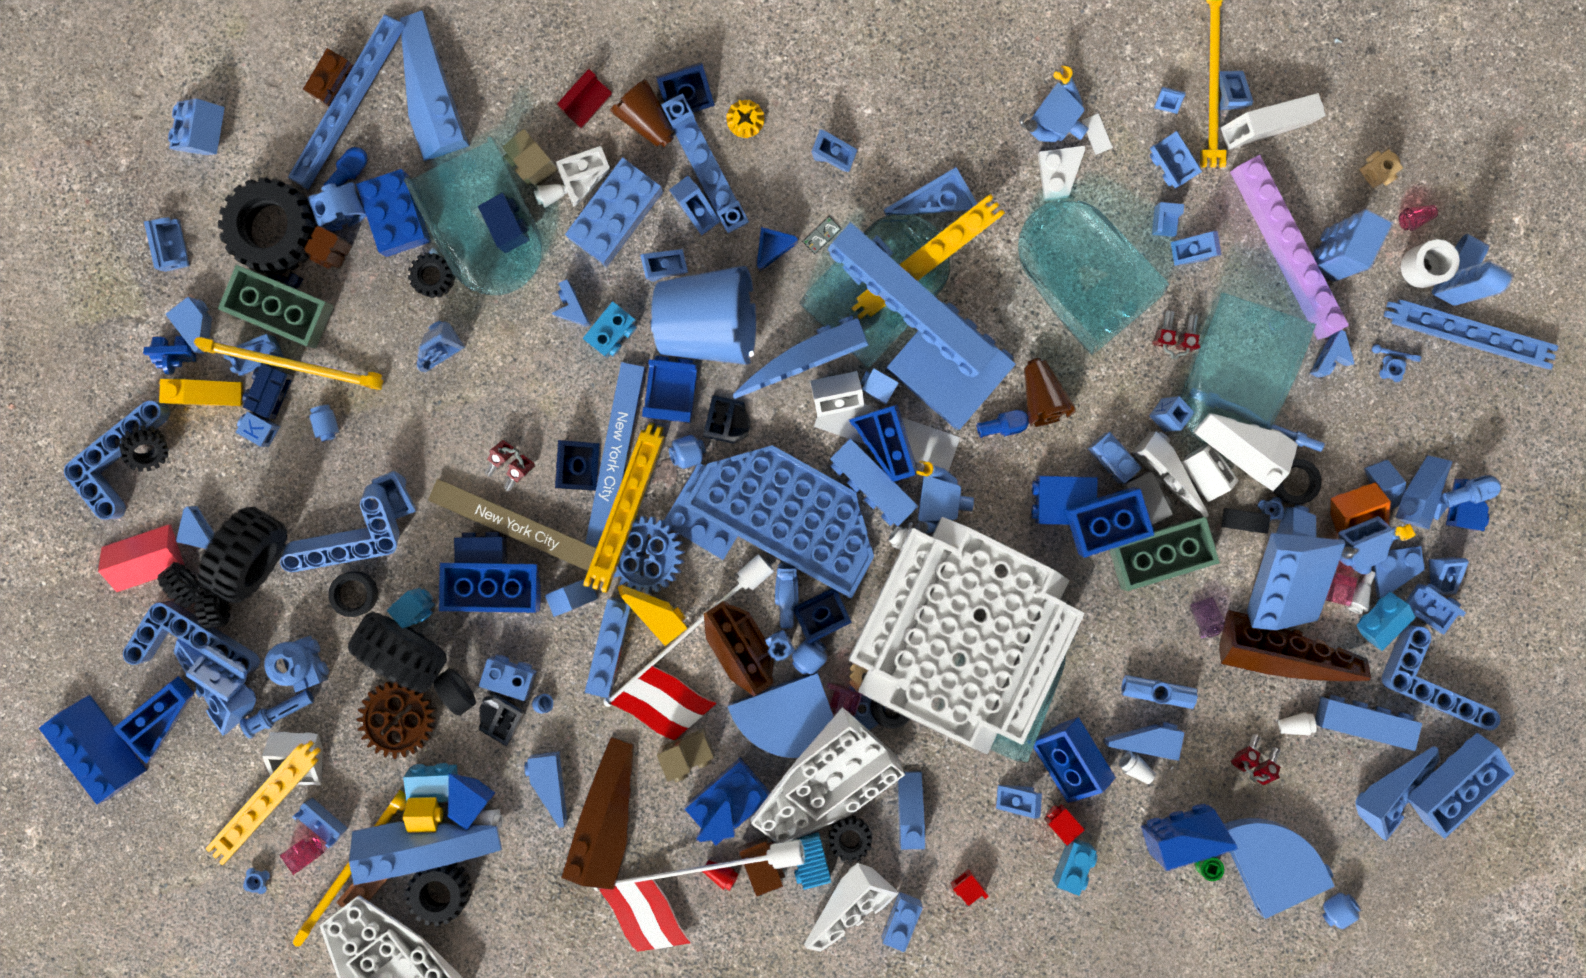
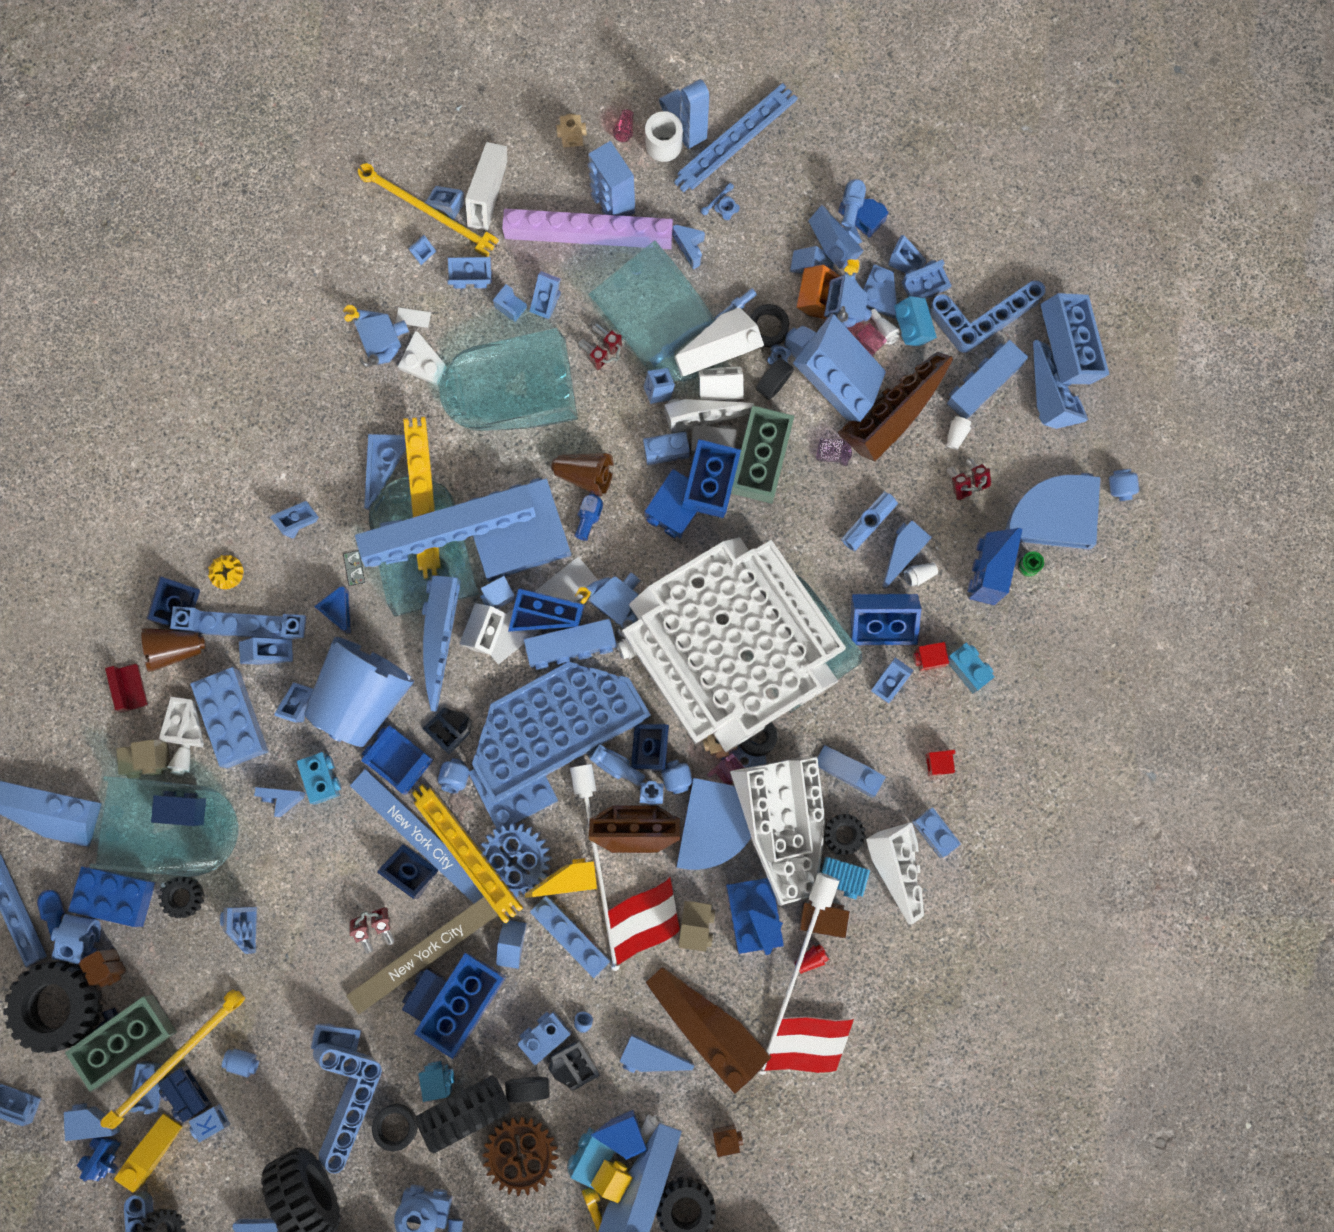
camera: 50 degrees left, 10 degrees down
(518, 892) = (727, 1140): none -> reddish brown brick

